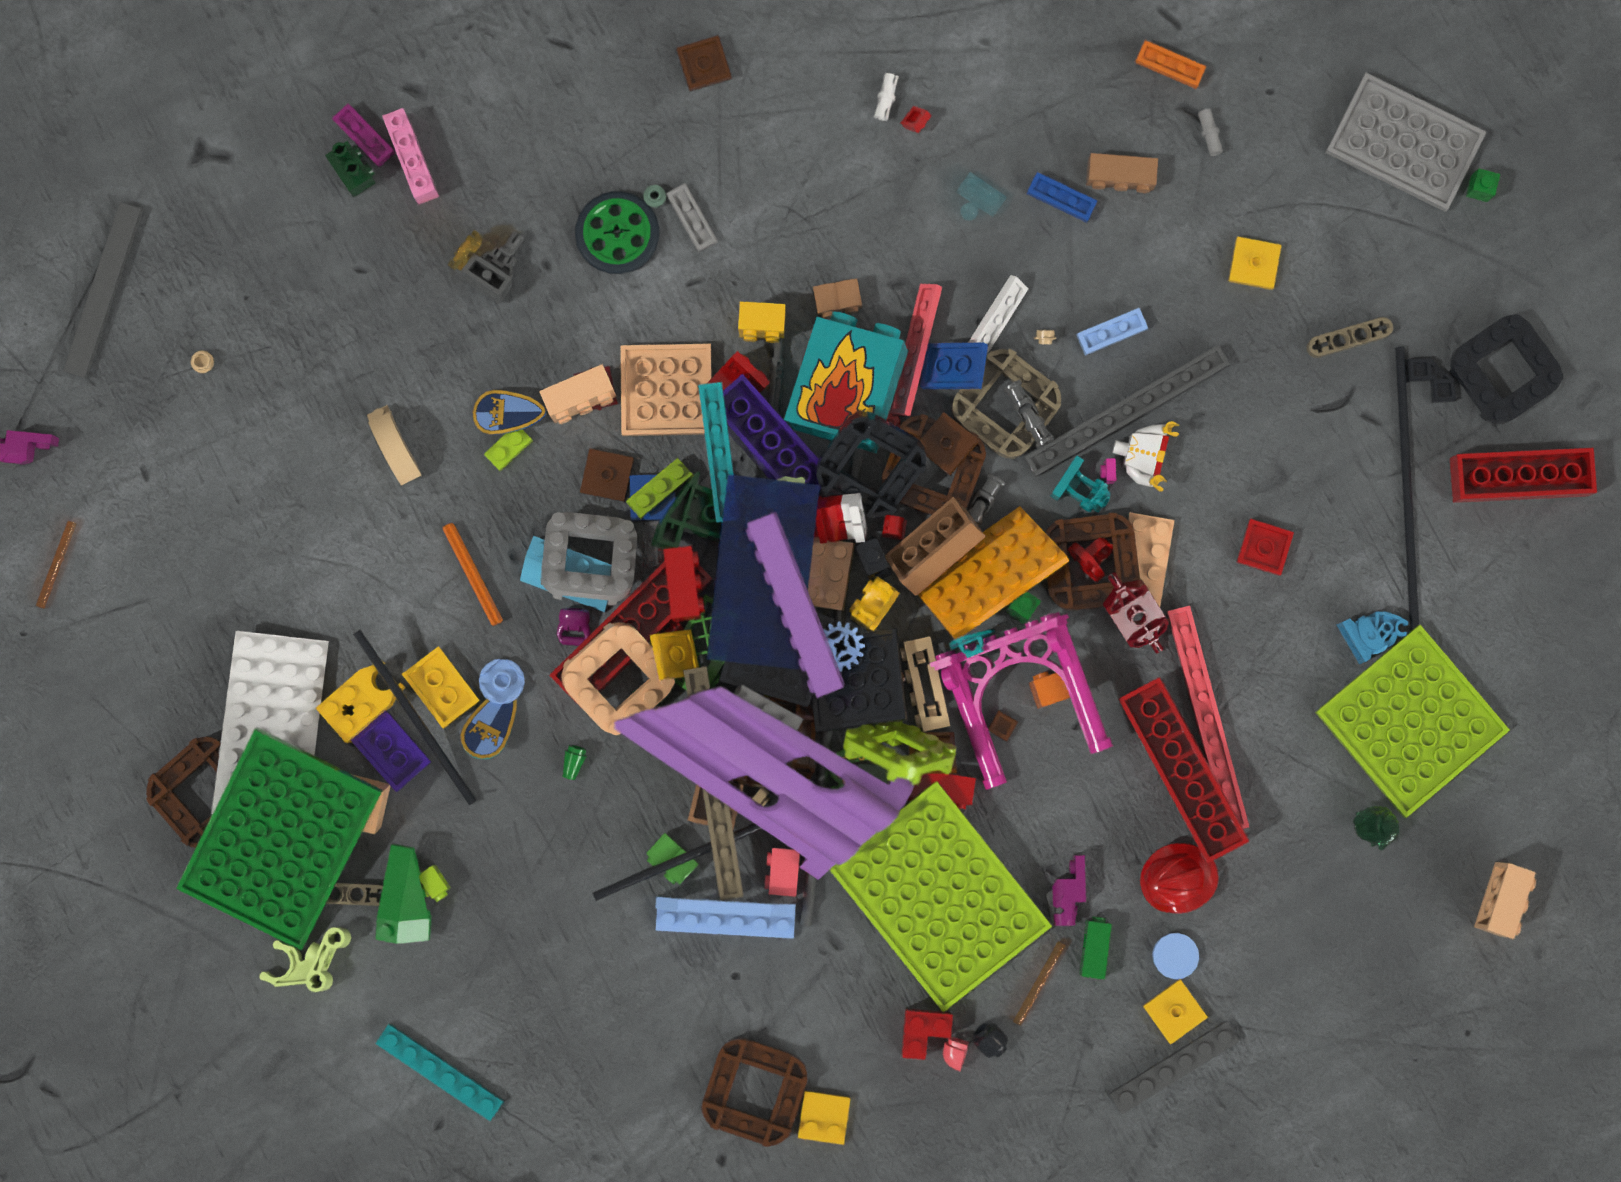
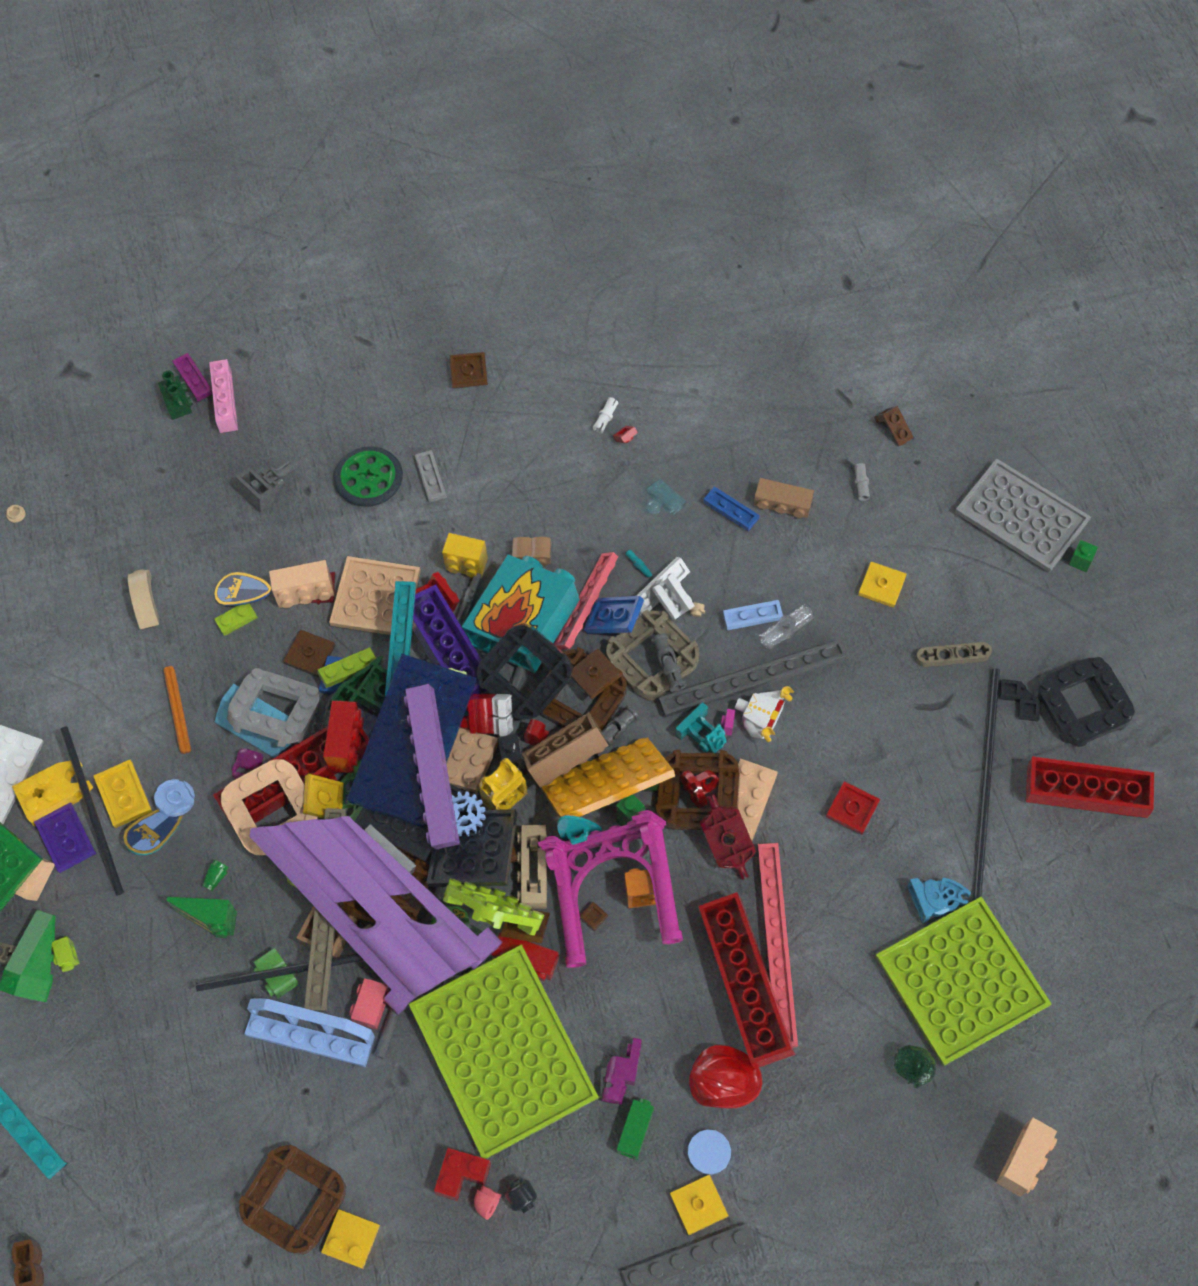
camera: 15 degrees right, 20 degrees down
(469, 244) = (243, 463): clear yellow plate -> none
(583, 812) = (210, 914): none -> green slope
(654, 202) = (405, 460): sand green plate -> none
(966, 289) = (638, 563): none -> teal piece
(1019, 332) = (673, 597): none -> white brick
(1039, 983) = (578, 1152): clear orange bar -> none
(1145, 350) = (794, 620): none -> clear piece
(1170, 64) = (838, 428): orange plate -> none
(1238, 45) = (896, 423): none -> reddish brown bracket

